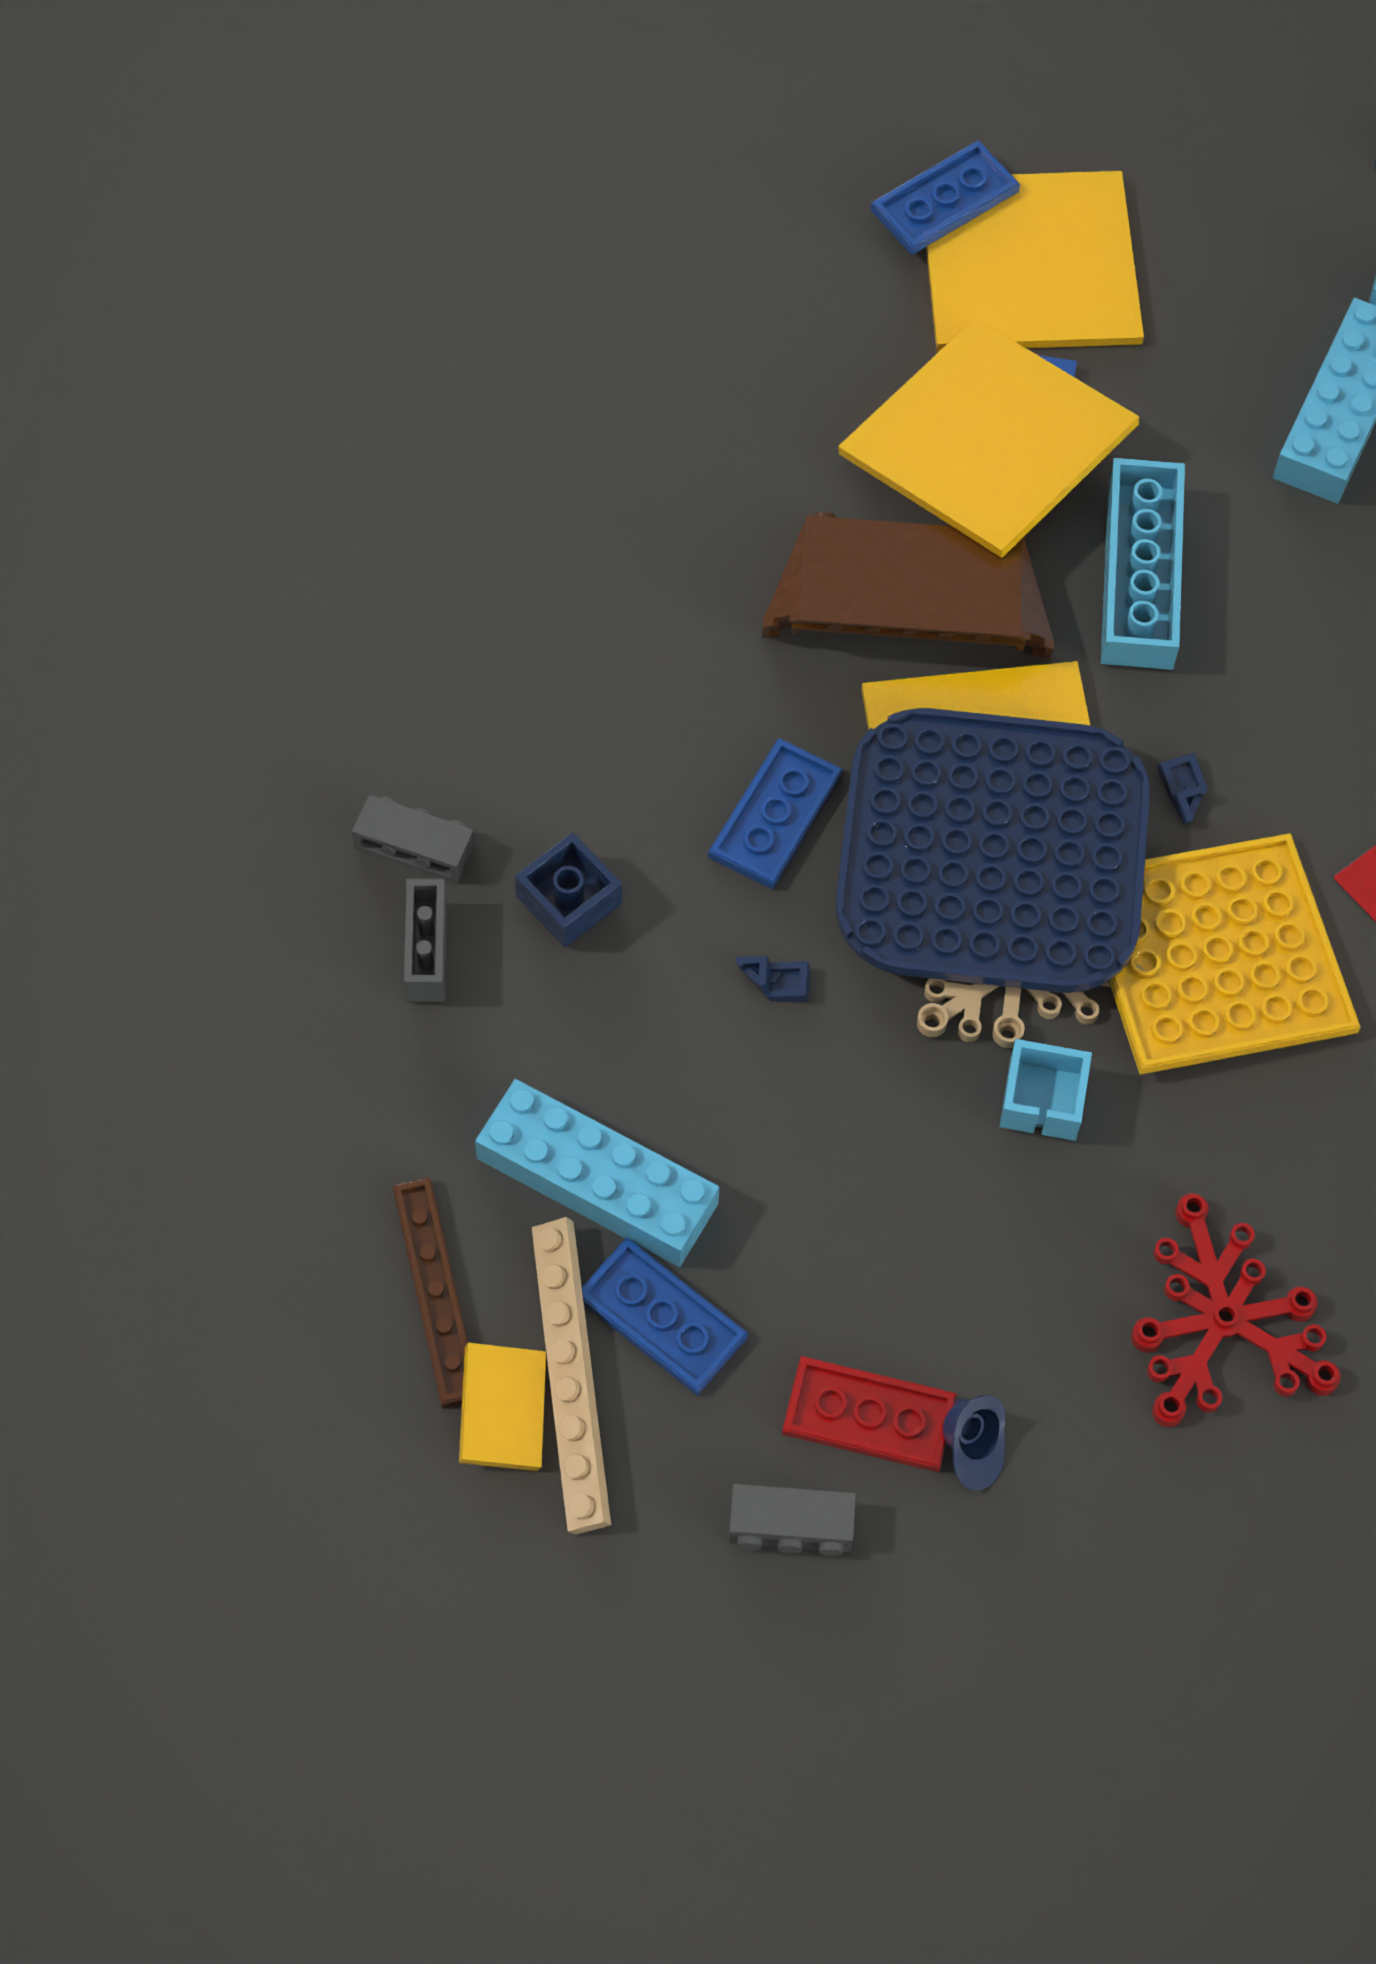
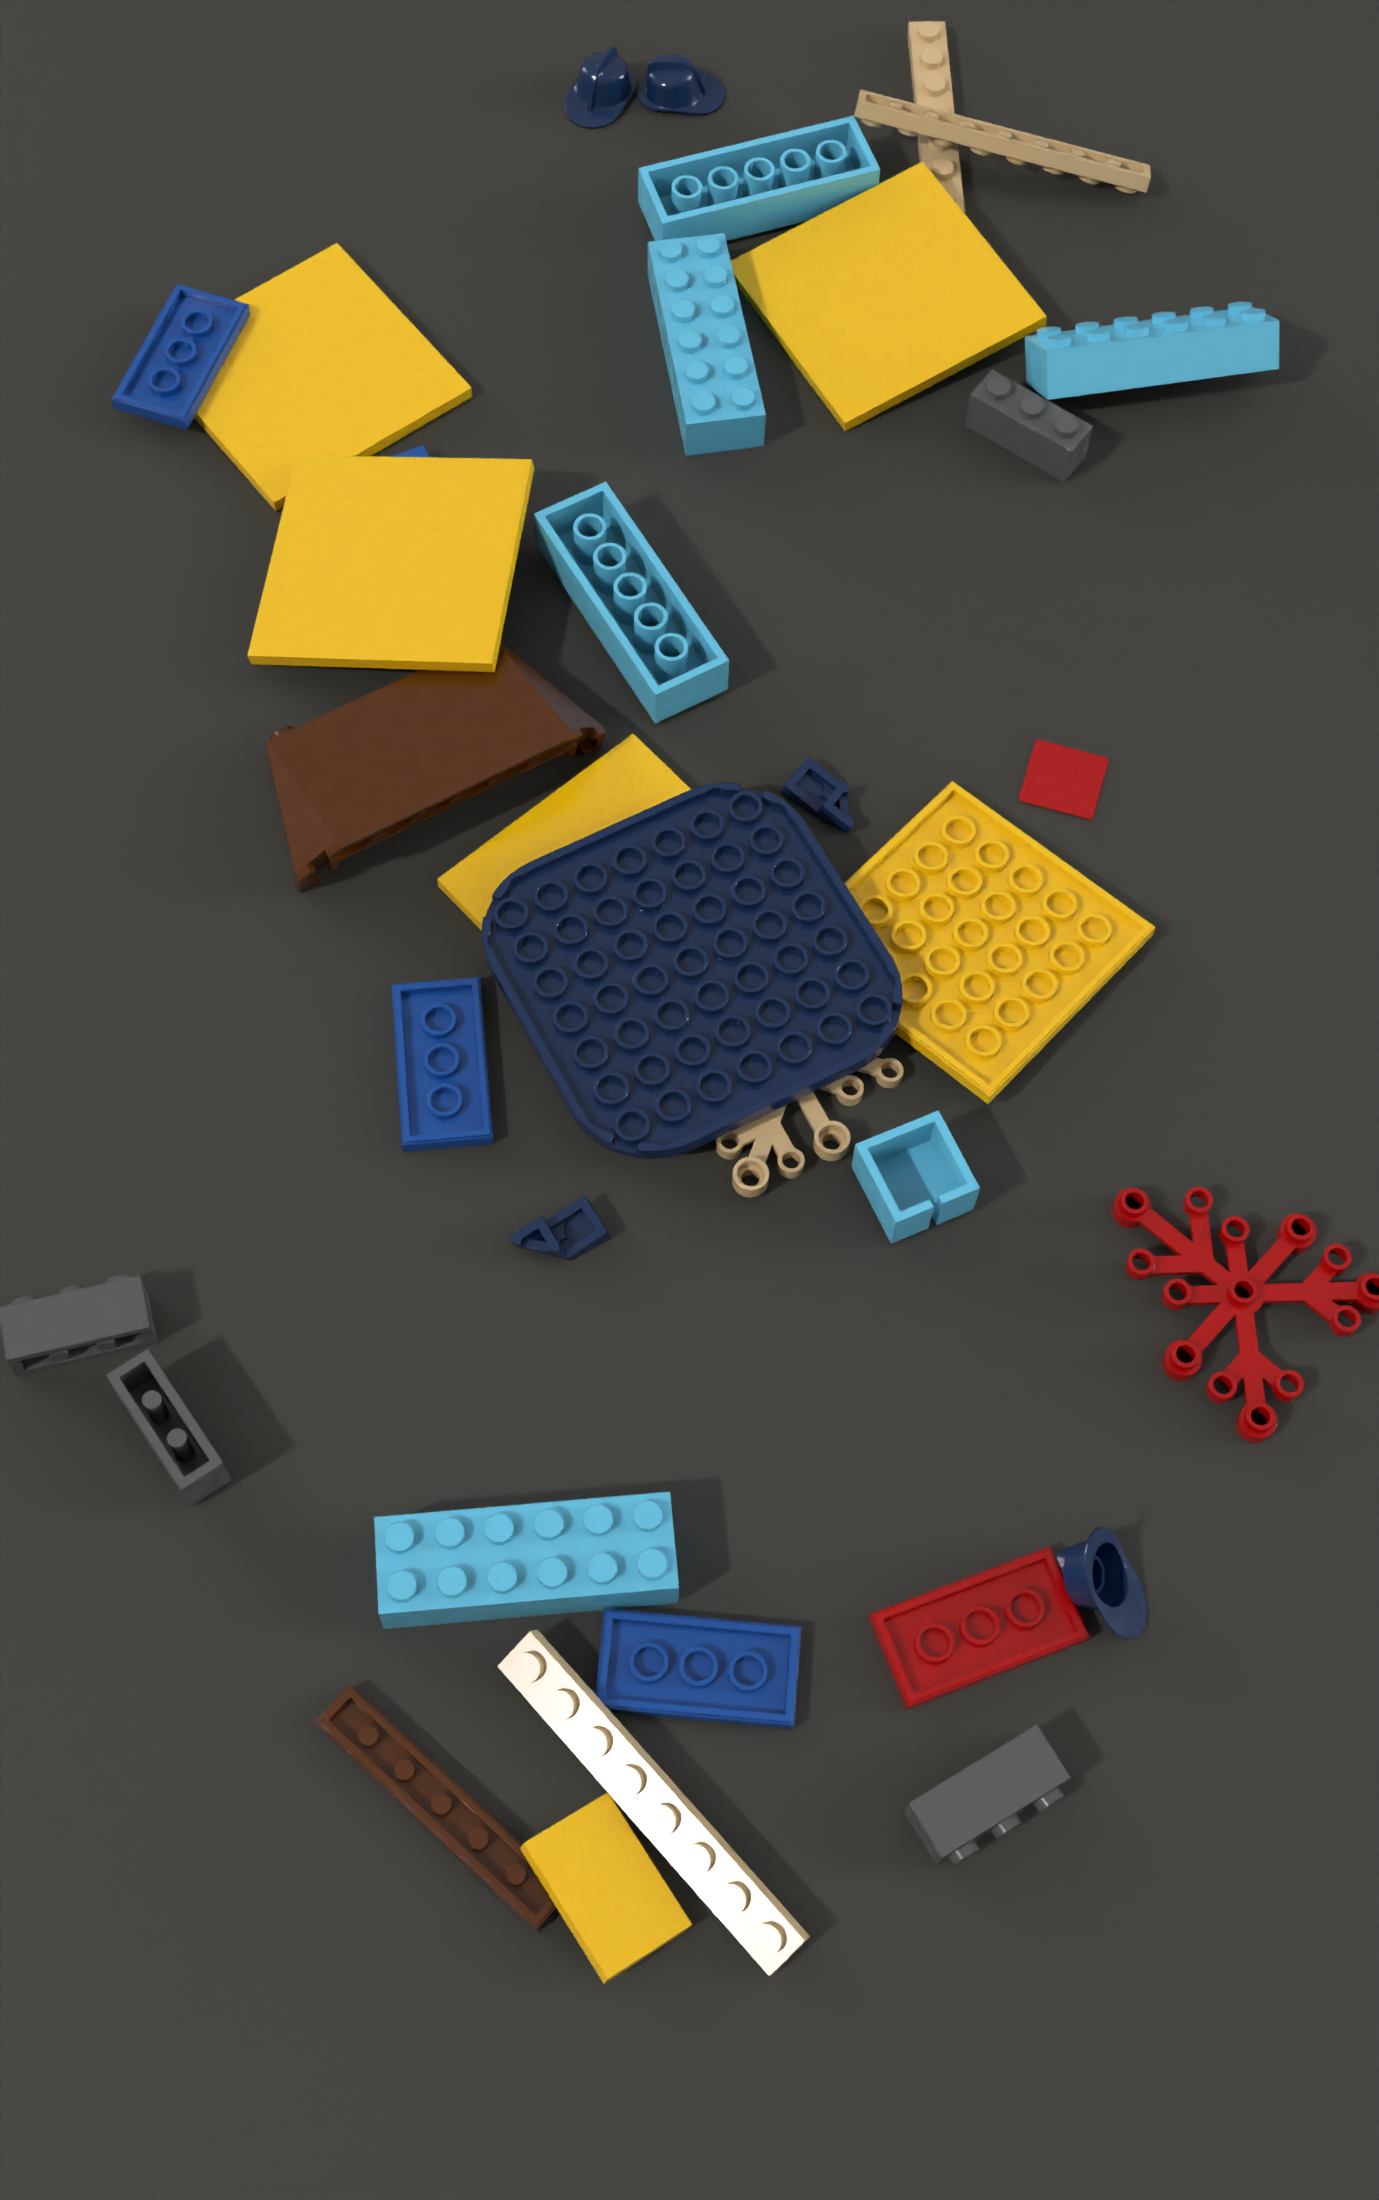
camera: 35 degrees left, 0 degrees up
(568, 889) = (286, 1276): dark blue brick -> none

